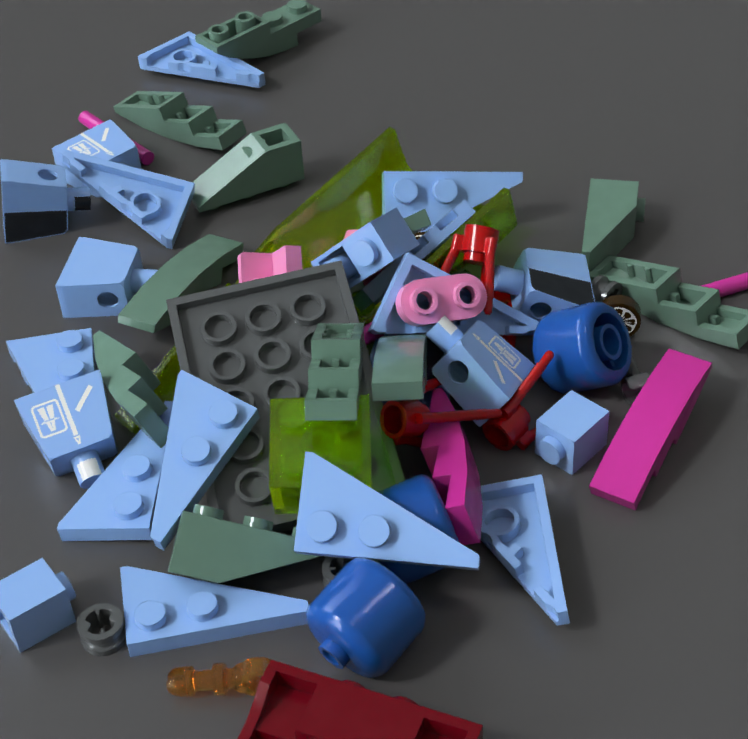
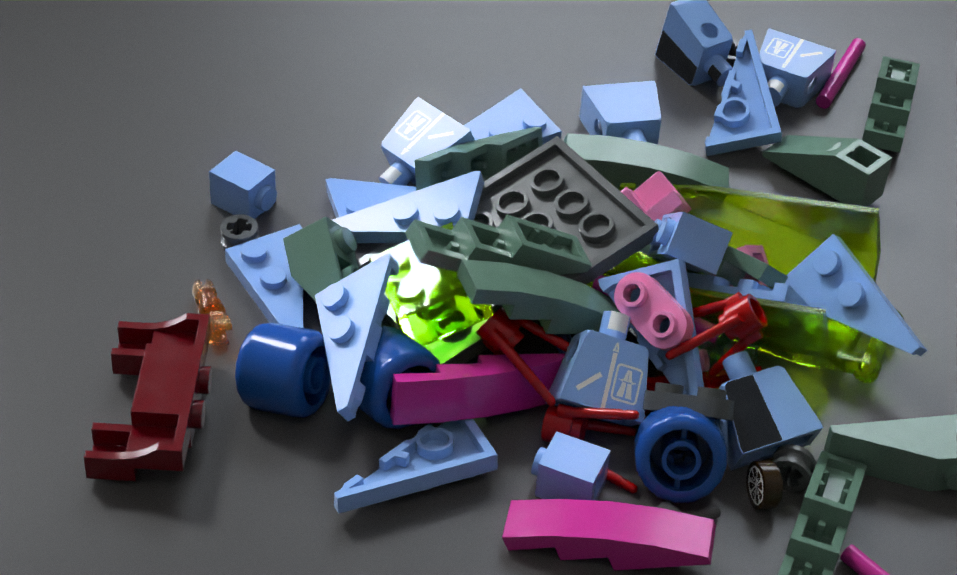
camera: 65 degrees right, 0 degrees up
(530, 331) = (708, 401): none -> dark grey plate

